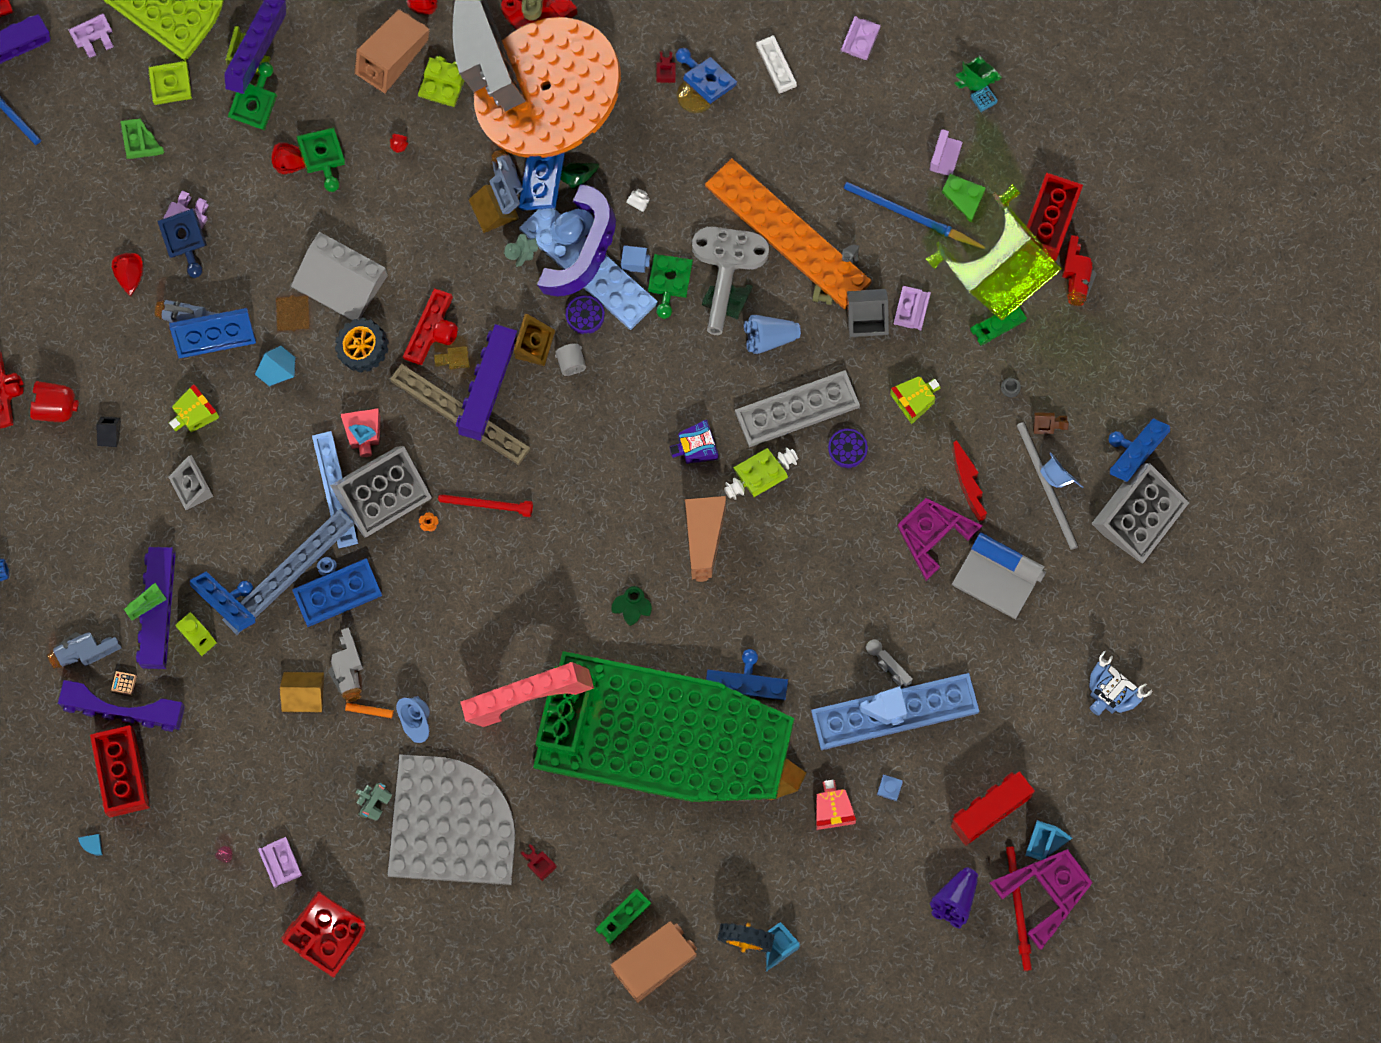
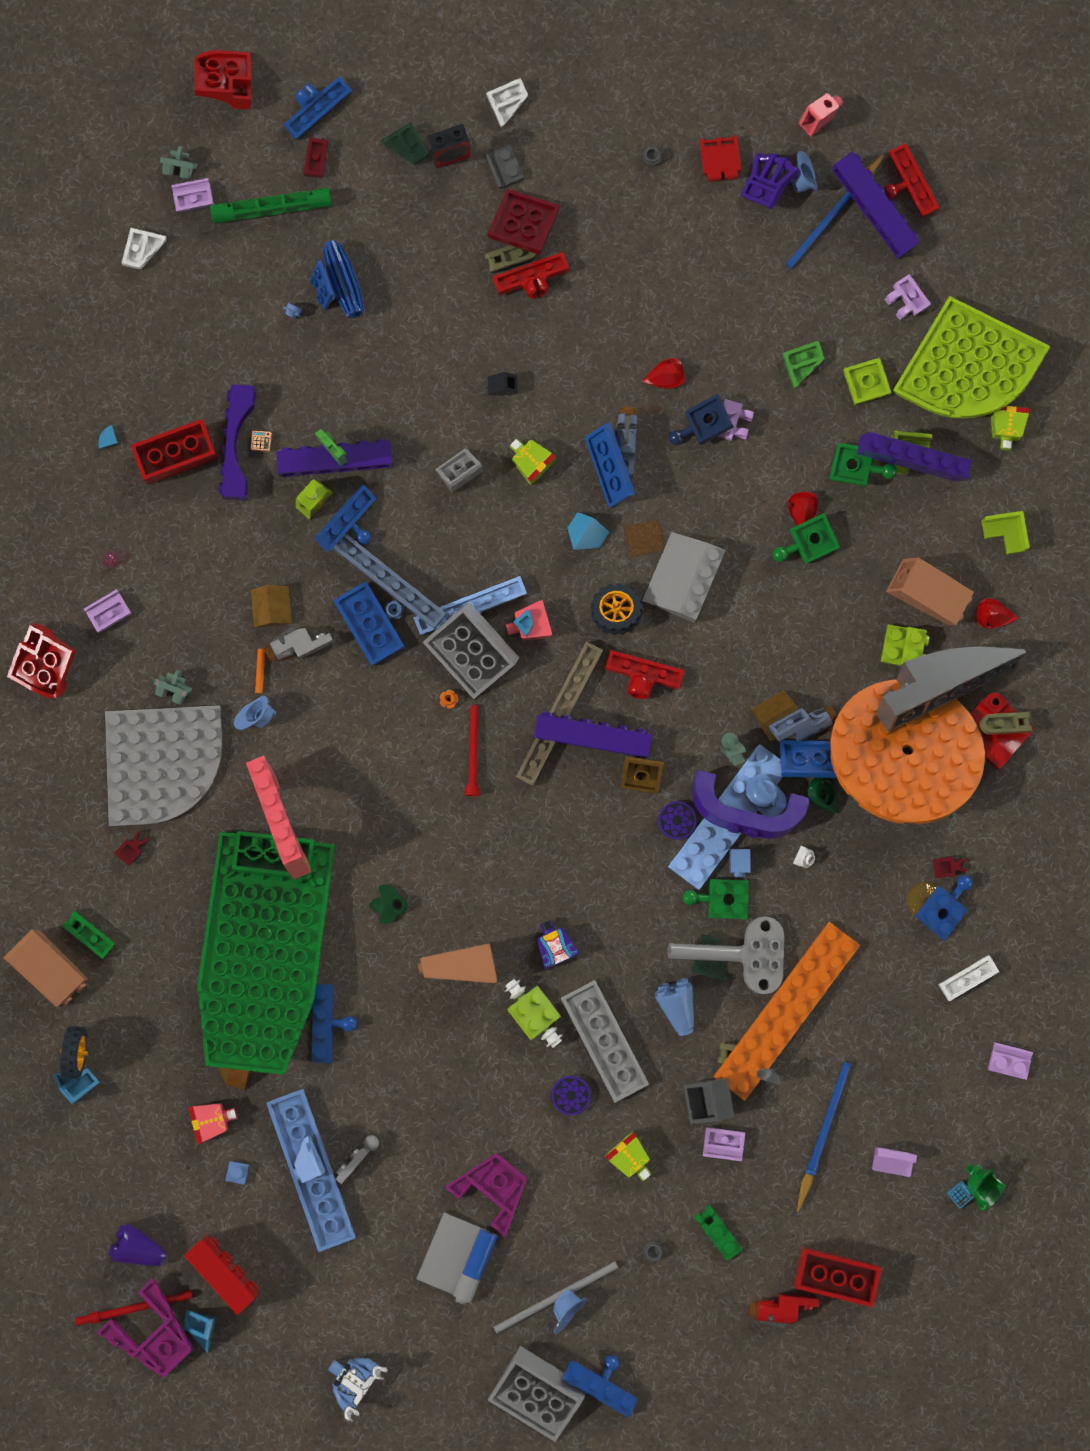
camera: 80 degrees right, 10 degrees up
(53, 402) = (521, 327): red cylinder -> none
(81, 647) = (289, 396): sand blue plate -> none
(398, 143) = (833, 613): red plate -> none
(456, 358) = (615, 701): clear yellow plate -> none
(570, 359) = (627, 812): light grey piece -> none
(964, 195) = (852, 1184): bright green wing -> none
(966, 474) = (555, 1215): red slope -> none
(1009, 270) = (761, 1245): clear neon green piece -> none
(1046, 423) = (619, 1292): reddish brown plate -> none

